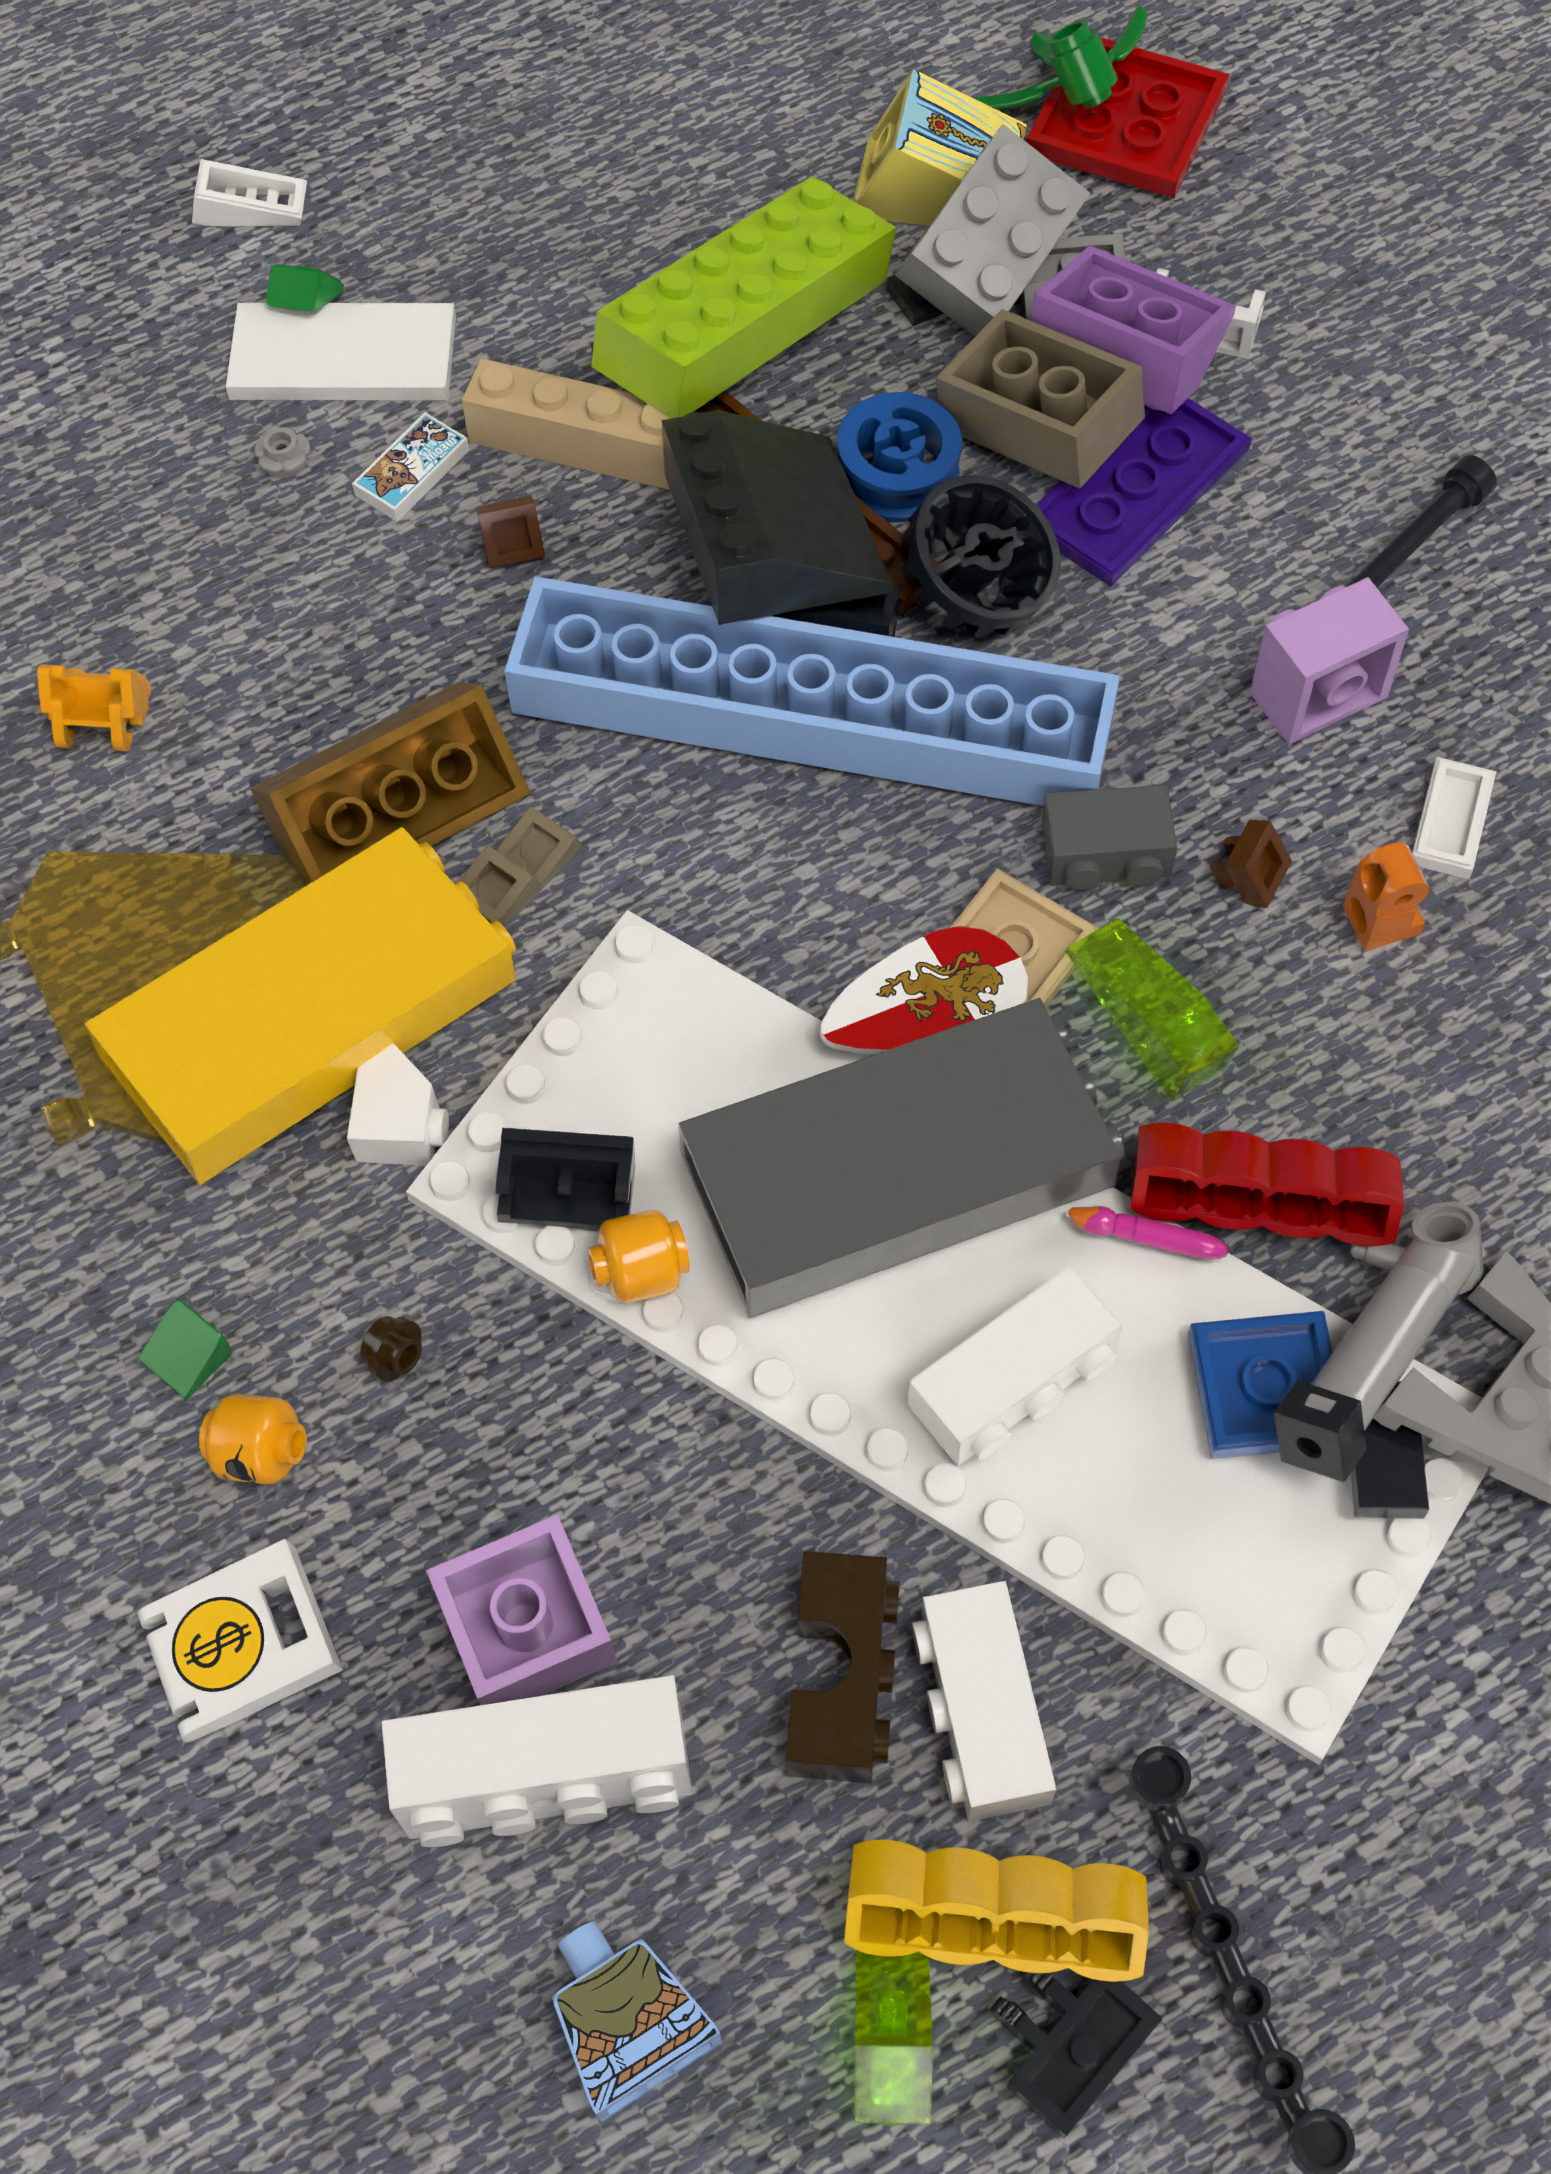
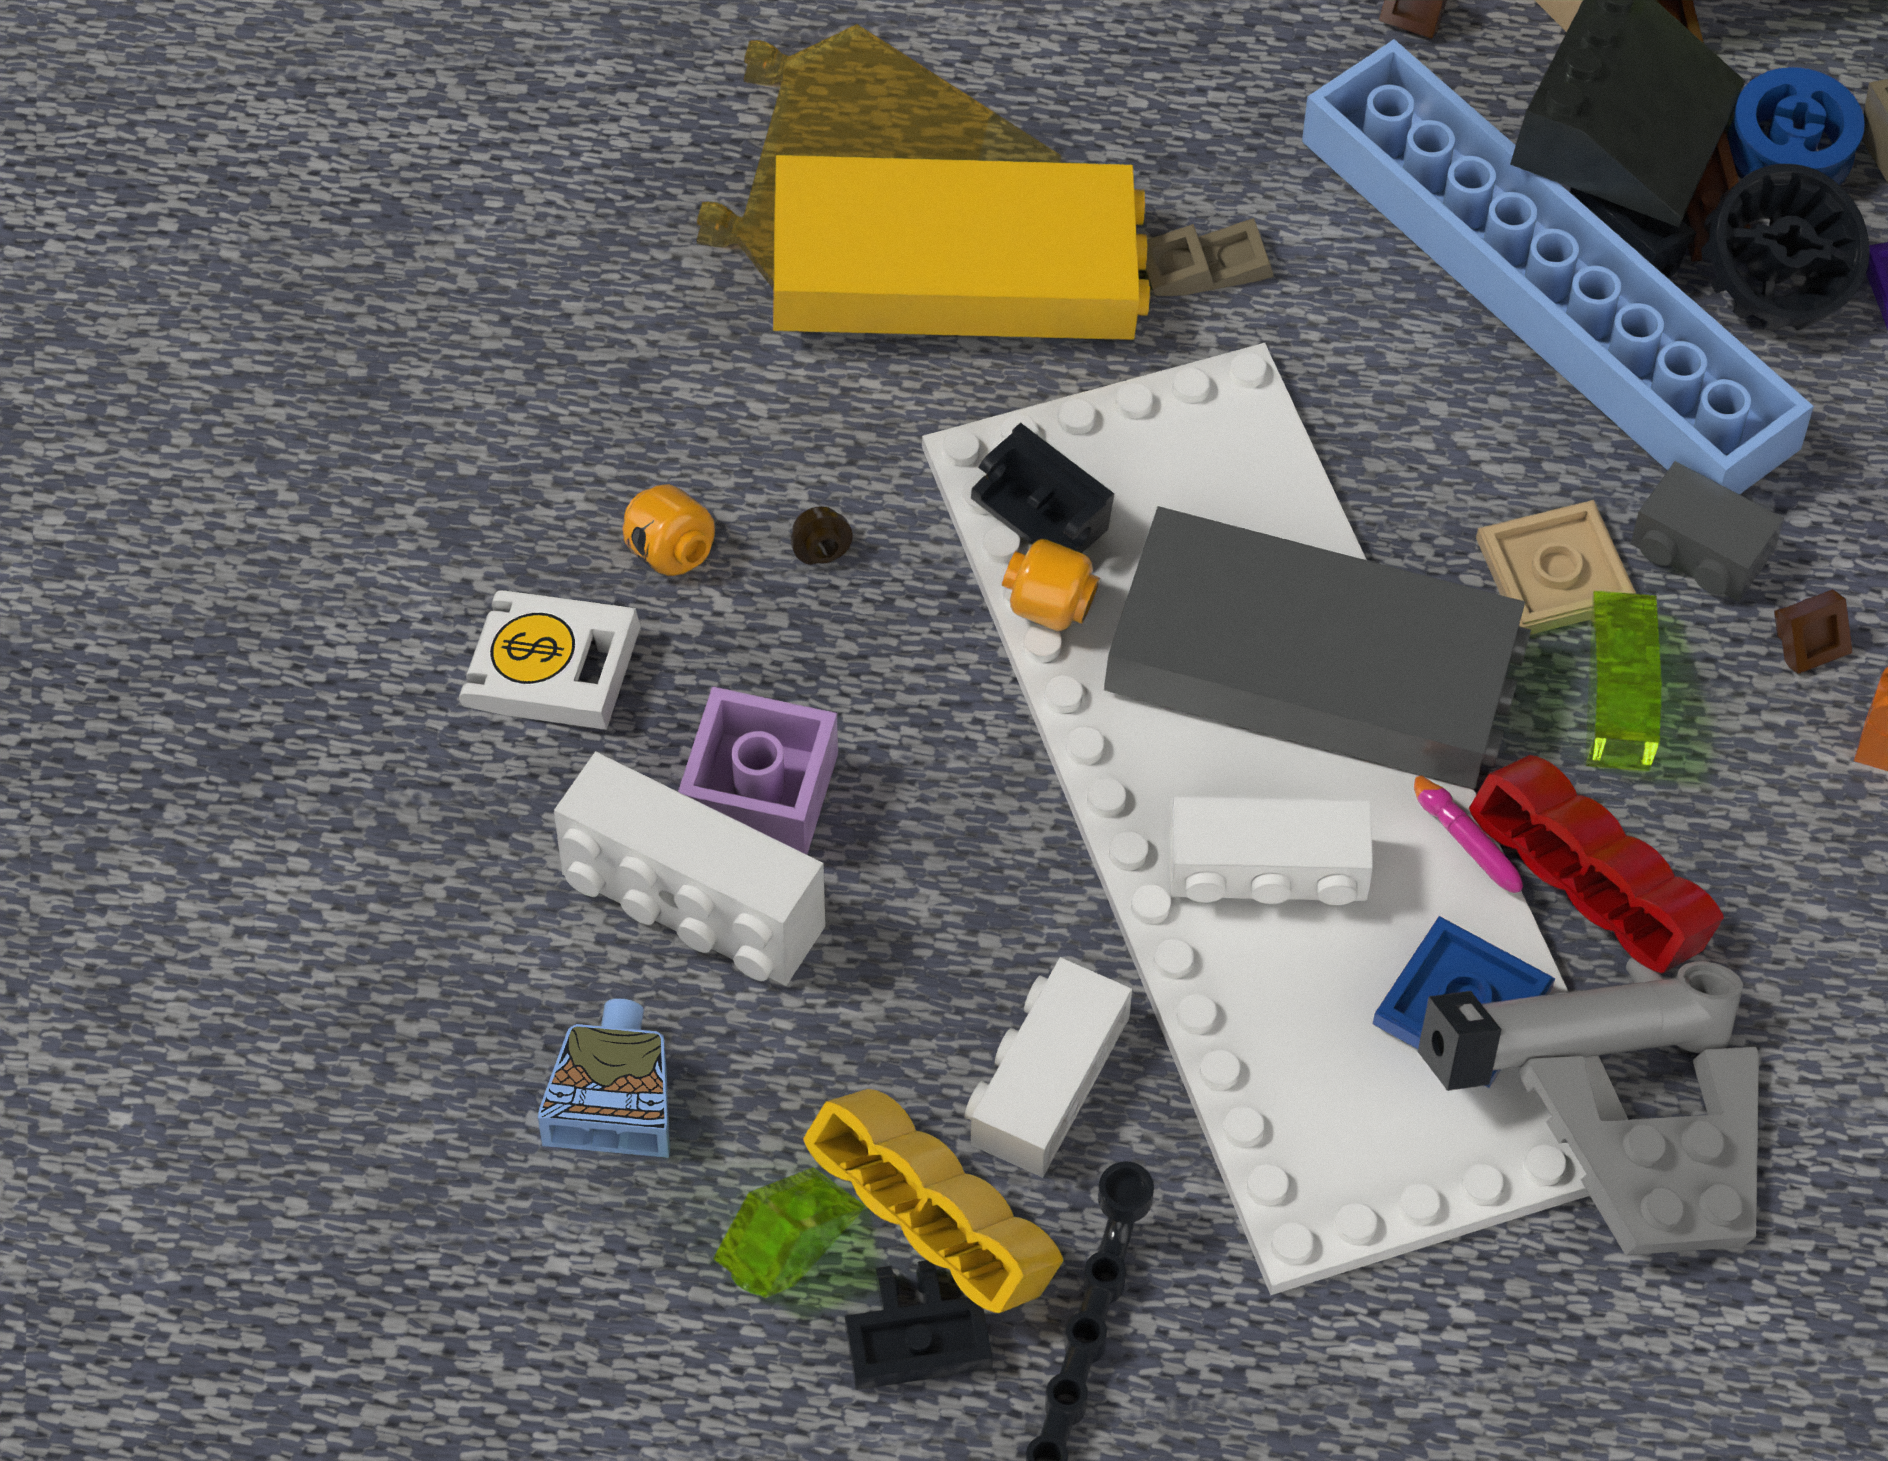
camera: 35 degrees right, 5 degrees down
(184, 1350) = (672, 441): green slope -> none
(395, 1113) = (958, 373): white slope -> none
(416, 770) = (1182, 136): pearl gold slope -> none
(836, 1729) = (928, 1008): dark brown arch -> none
(926, 990) = (1448, 543): shield -> none
(1390, 1474) = (1500, 1121): black tile -> none

